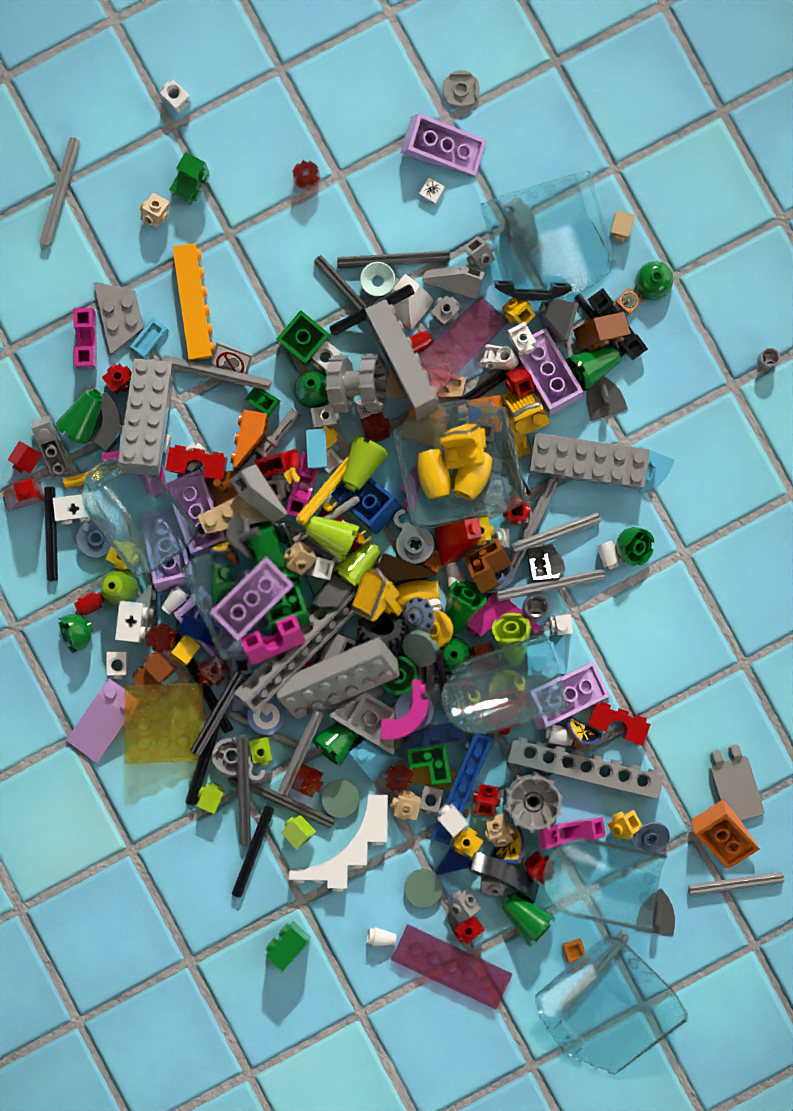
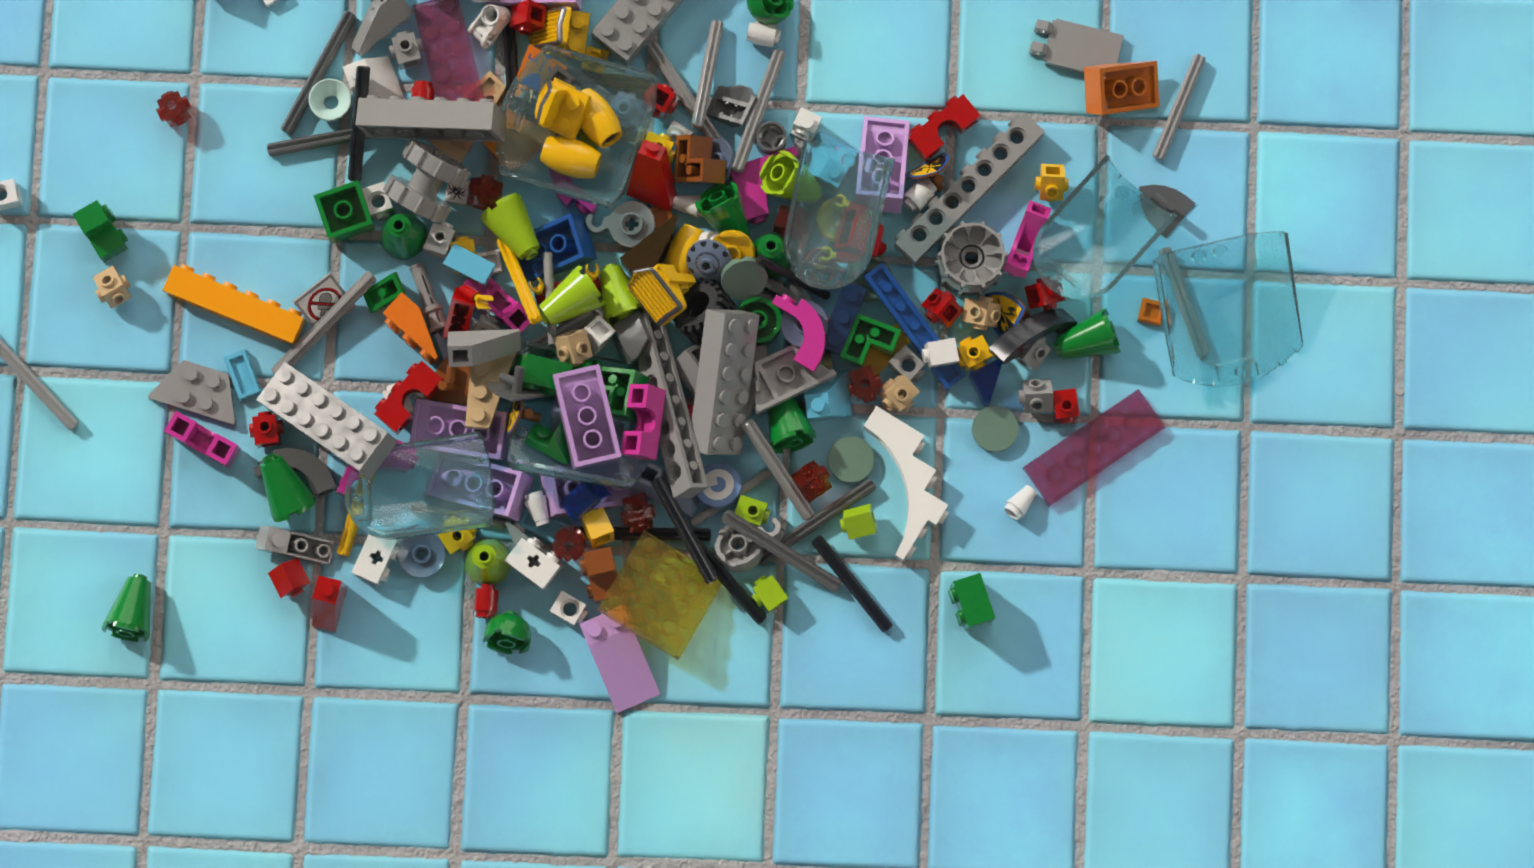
camera: 65 degrees left, 5 degrees down
(51, 534) = (387, 600): black axle -> none
(651, 837) = (1080, 155): sand blue dish -> none

